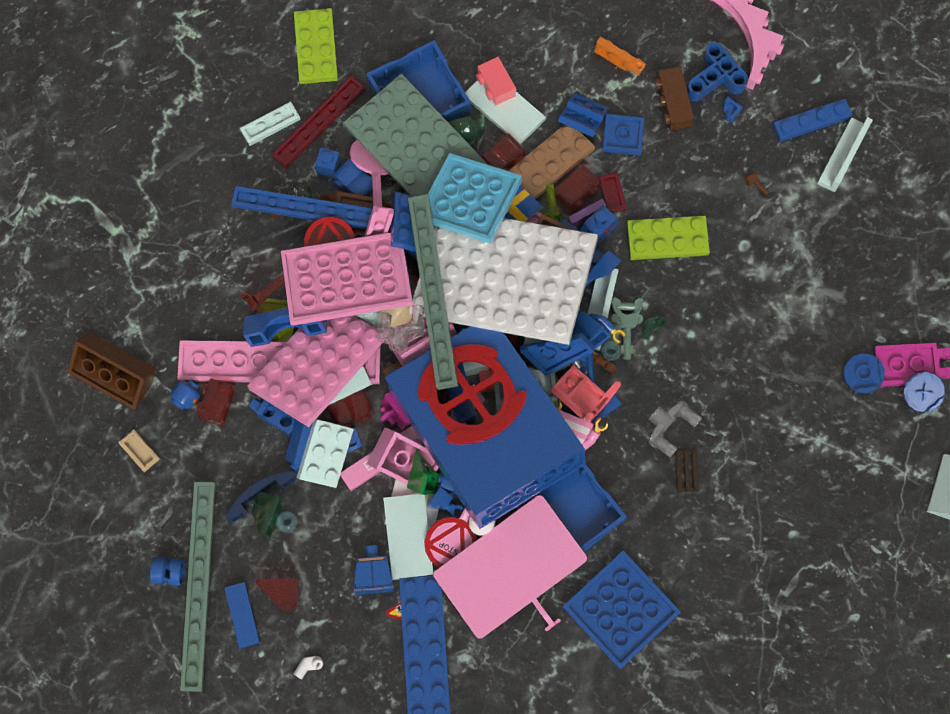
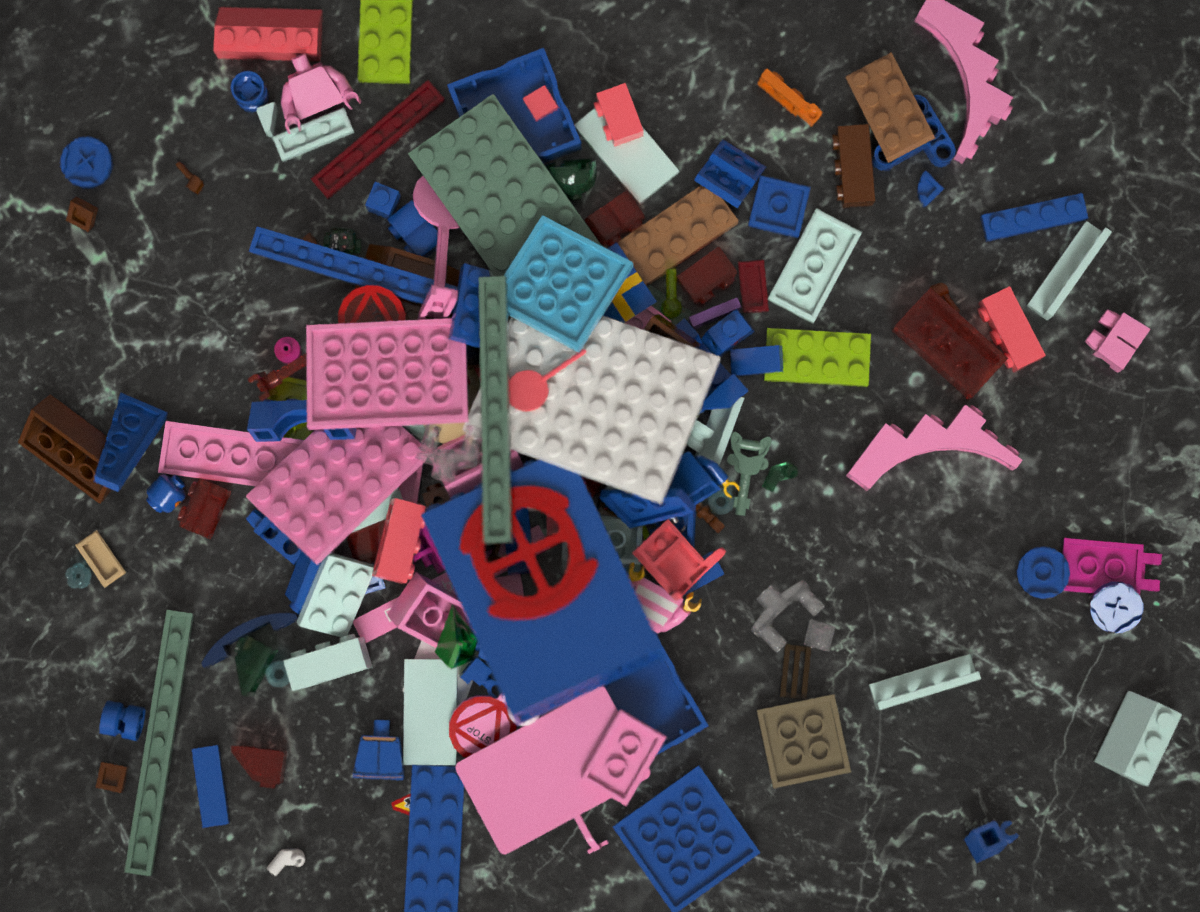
camera: 10 degrees right, 10 degrees up
(101, 198) = (81, 214): none -> reddish brown plate
(102, 162) = (86, 162): none -> blue tile
(126, 469) = (83, 581): none -> clear light blue plate
(151, 356) = (127, 440): none -> blue wing
(163, 617) = (112, 777): none -> reddish brown plate
(185, 168) = (194, 183): none -> reddish brown hand
(219, 97) = (249, 91): none -> blue wheel
(229, 58) = (267, 33): none -> coral slope
(234, 113) = (267, 116): none -> light aqua slope
(266, 277) = (291, 354): none -> dark pink tile
(267, 90) = (313, 90): none -> bright pink torso
(324, 506) = (327, 662): none -> light aqua brick
(369, 405) = (399, 541): none -> coral brick
(436, 81) = (540, 103): none -> coral tile
(457, 274) = (529, 388): none -> coral piece
(564, 547) = (623, 757): none -> bright pink tile
(586, 302) = (697, 436): none -> light aqua wheel
(624, 243) = (756, 360): none -> blue tile
(655, 173) = (814, 266): none -> light aqua tile
(695, 53) = (890, 107): none -> medium nougat plate
(701, 441) = (819, 635): none -> clear tile
(701, 522) = (803, 741): none -> dark tan plate
(762, 283) = (928, 436): none -> bright pink arch
(765, 214) = (949, 344): none -> clear red brick
(786, 466) = (923, 682): none -> light aqua fence
(809, 200) = (1010, 329): none -> coral brick
(857, 579) = (989, 840): none -> blue brick
(892, 197) = (1120, 341): none -> bright pink hips

